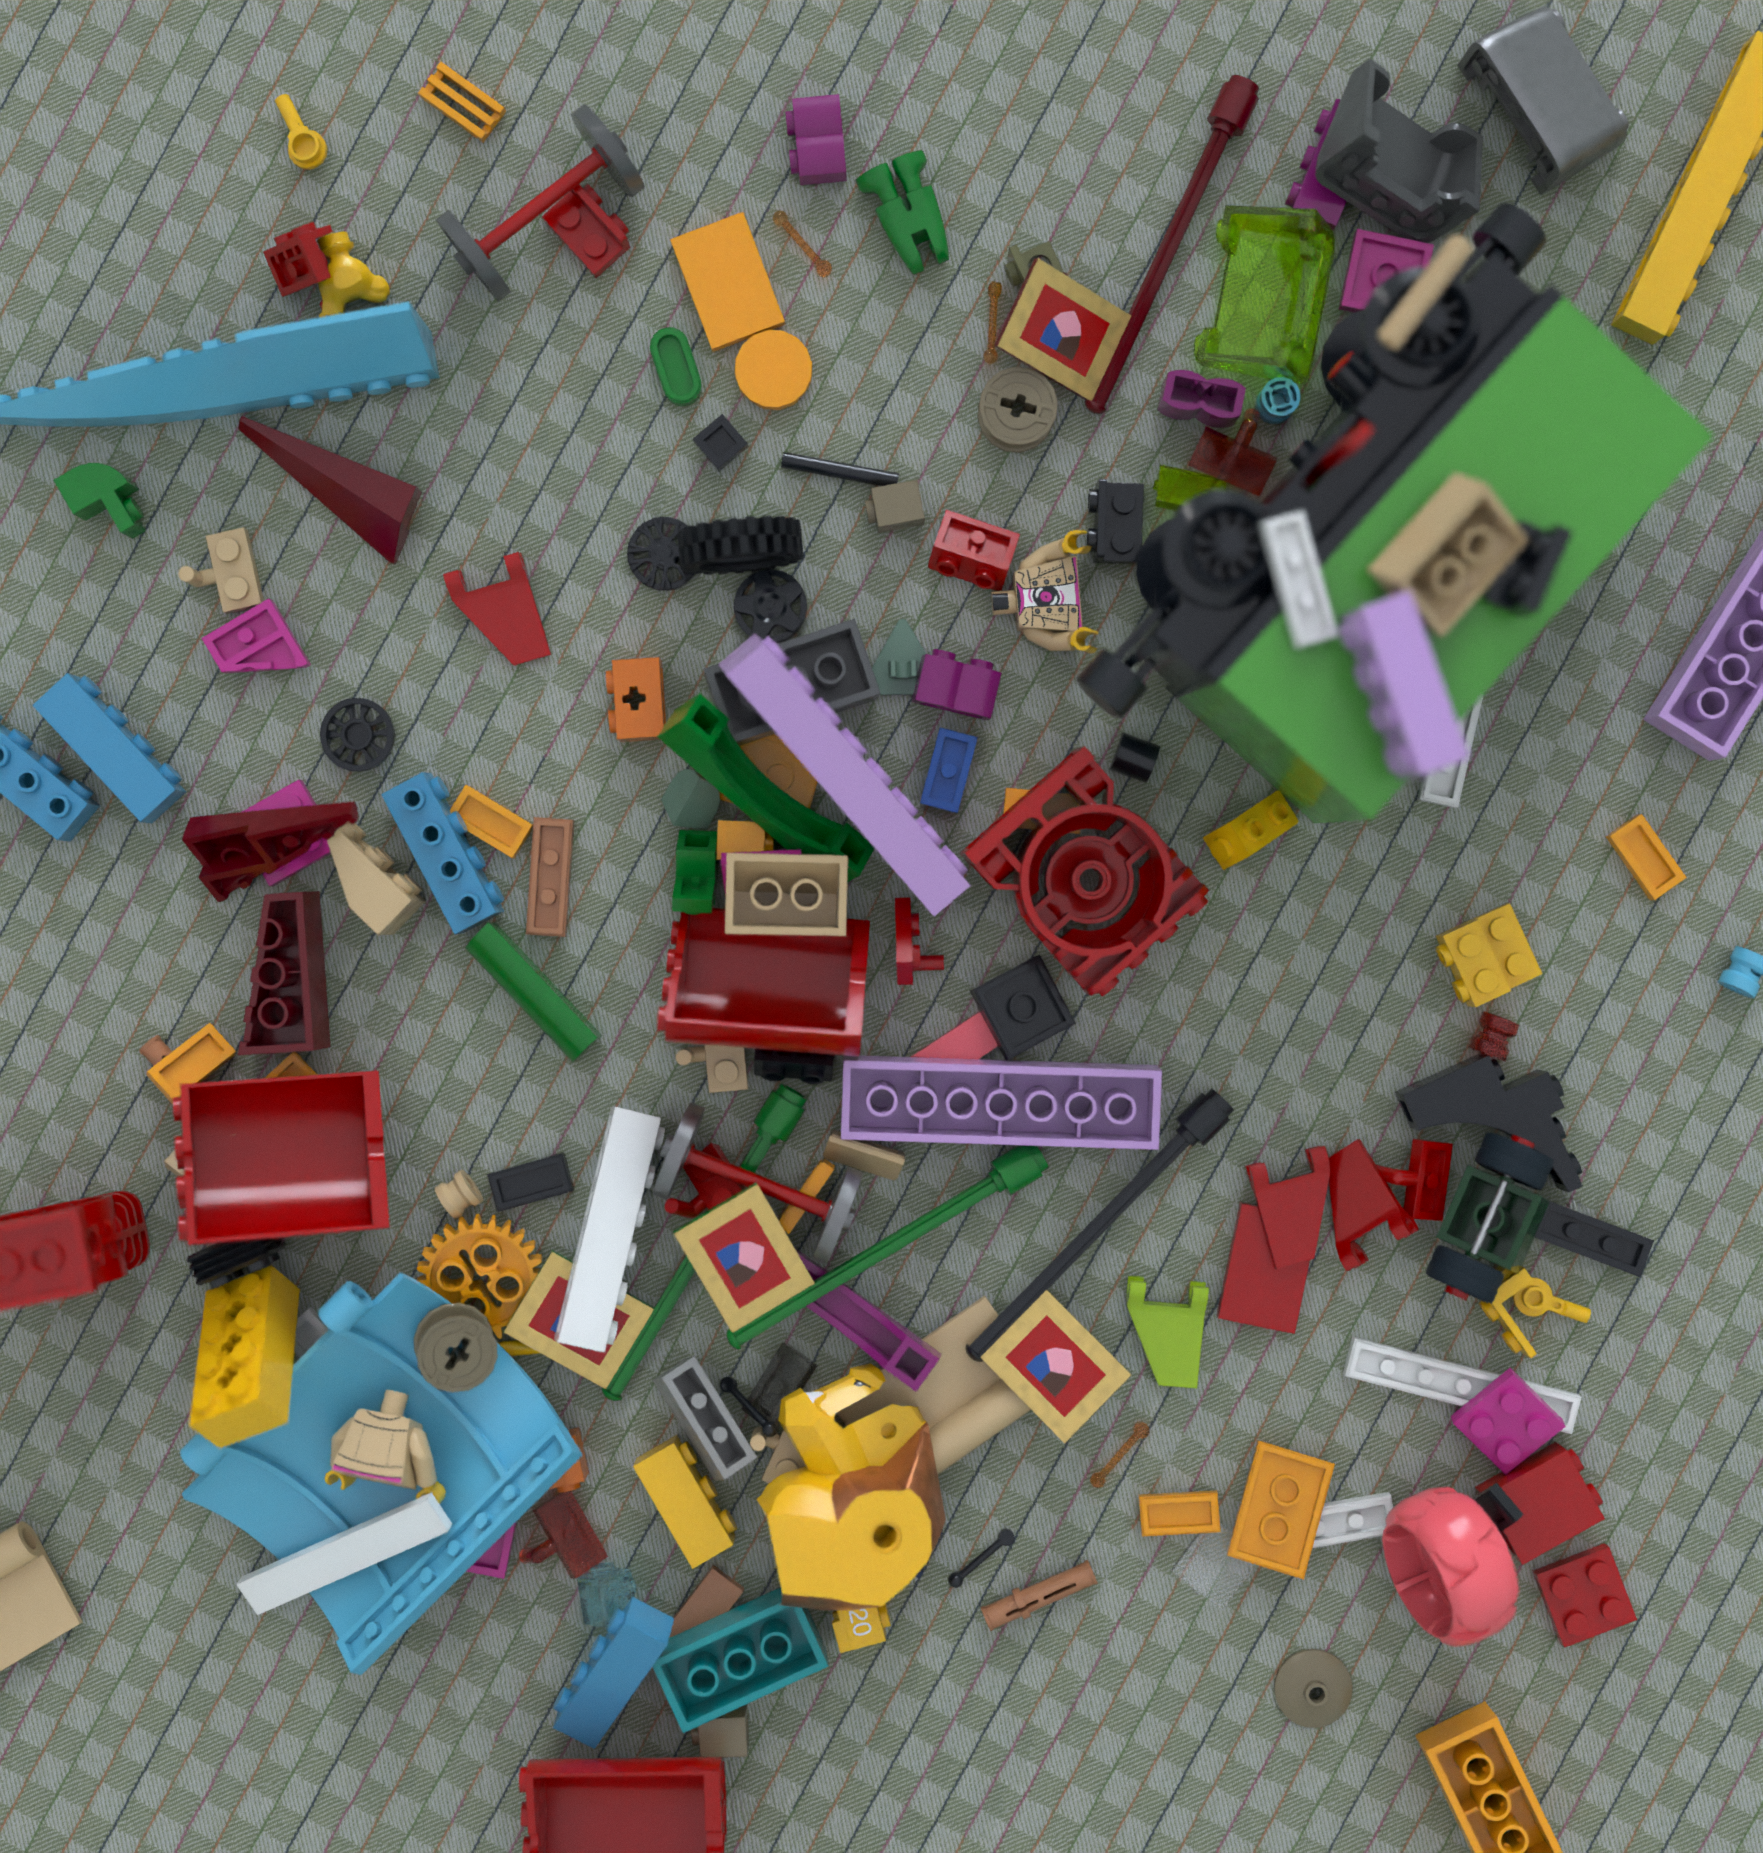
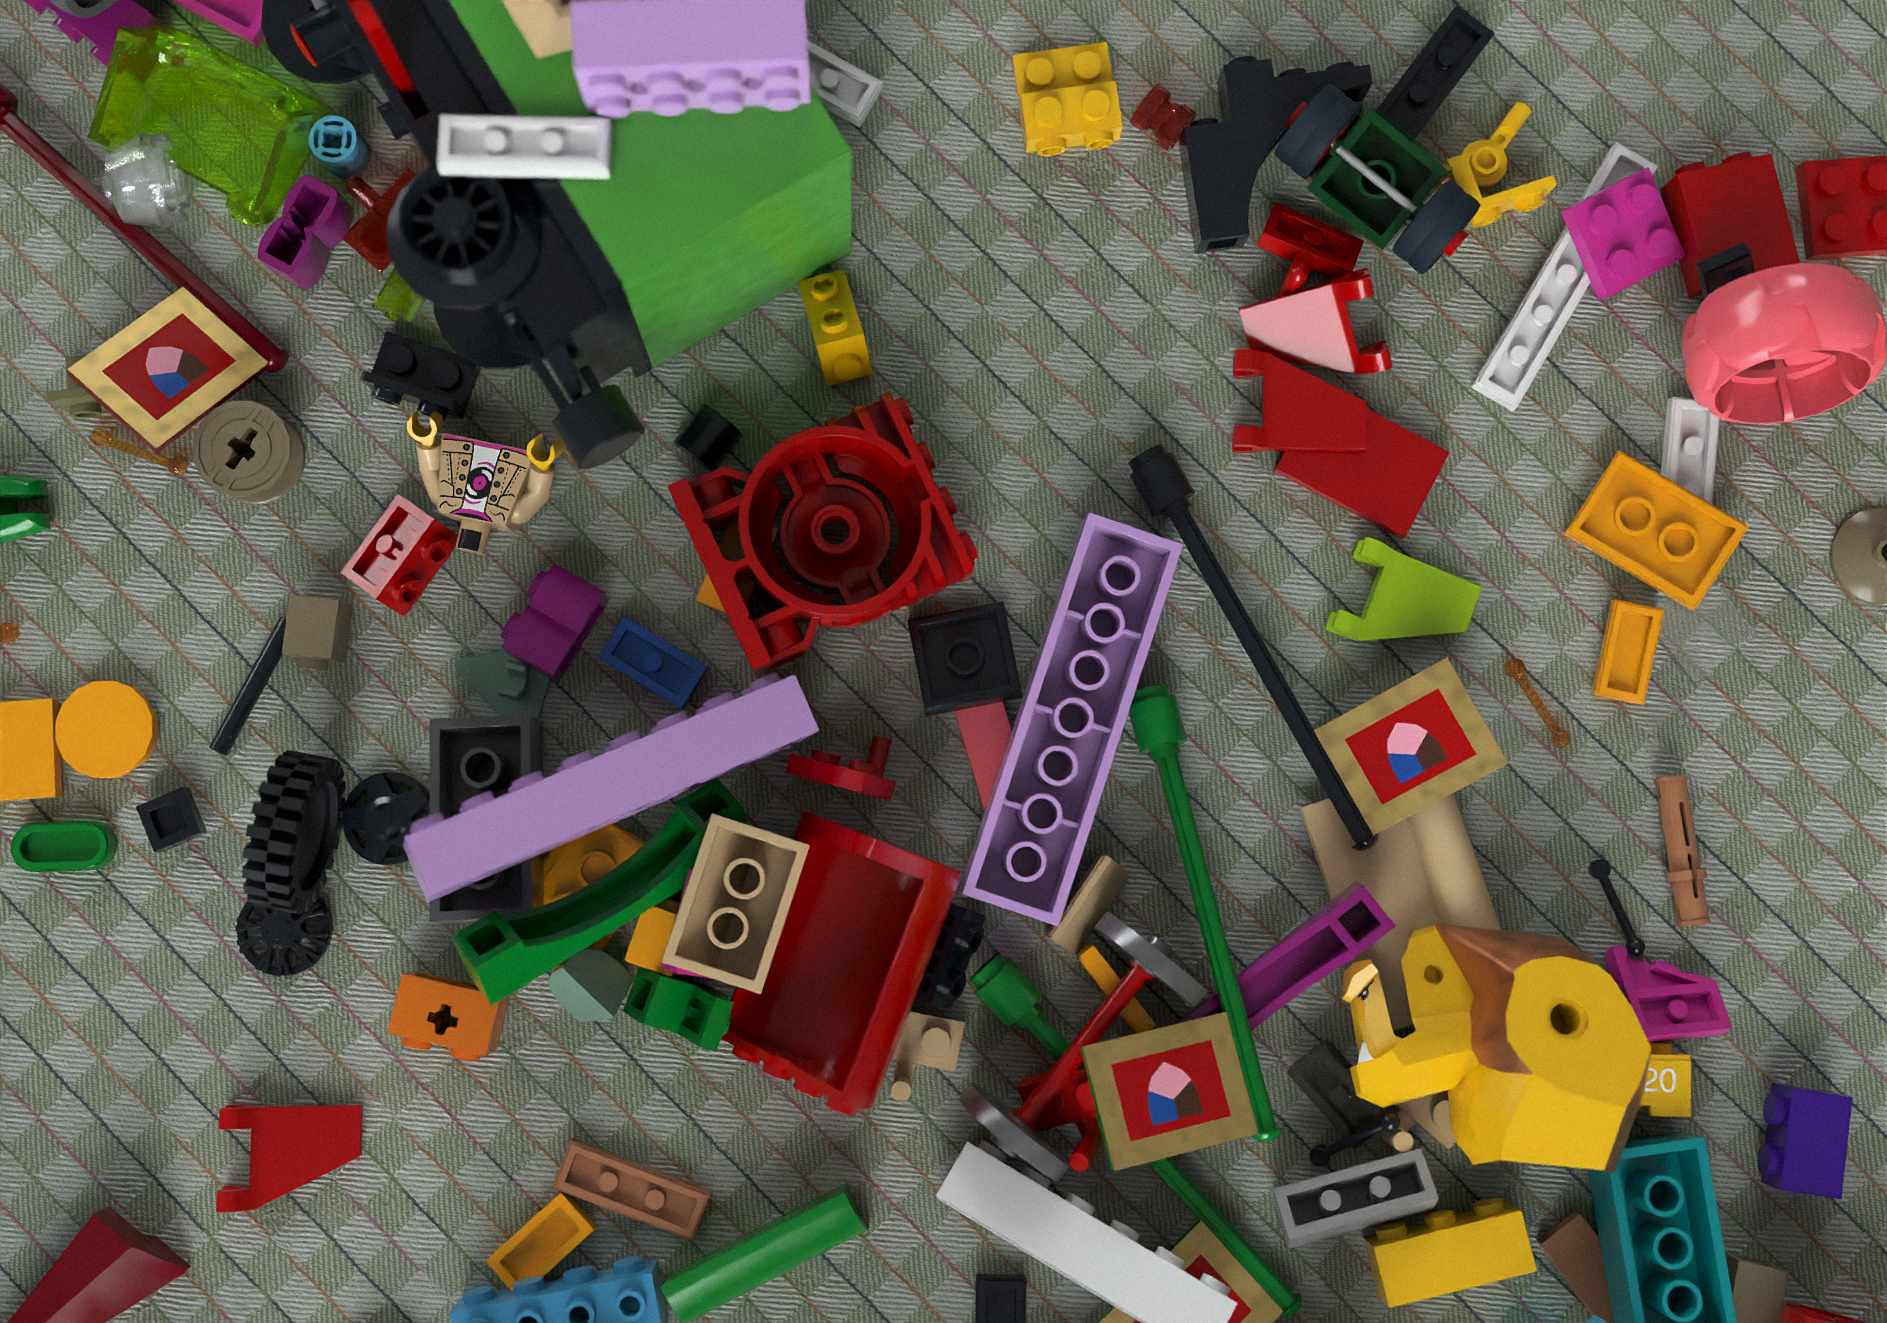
camera: 80 degrees left, 5 degrees down
(848, 1745) = (1805, 1140): none -> dark purple piece
(922, 1613) = (1667, 1000): none -> dark pink wing
(1202, 263) = (146, 182): none -> clear cone

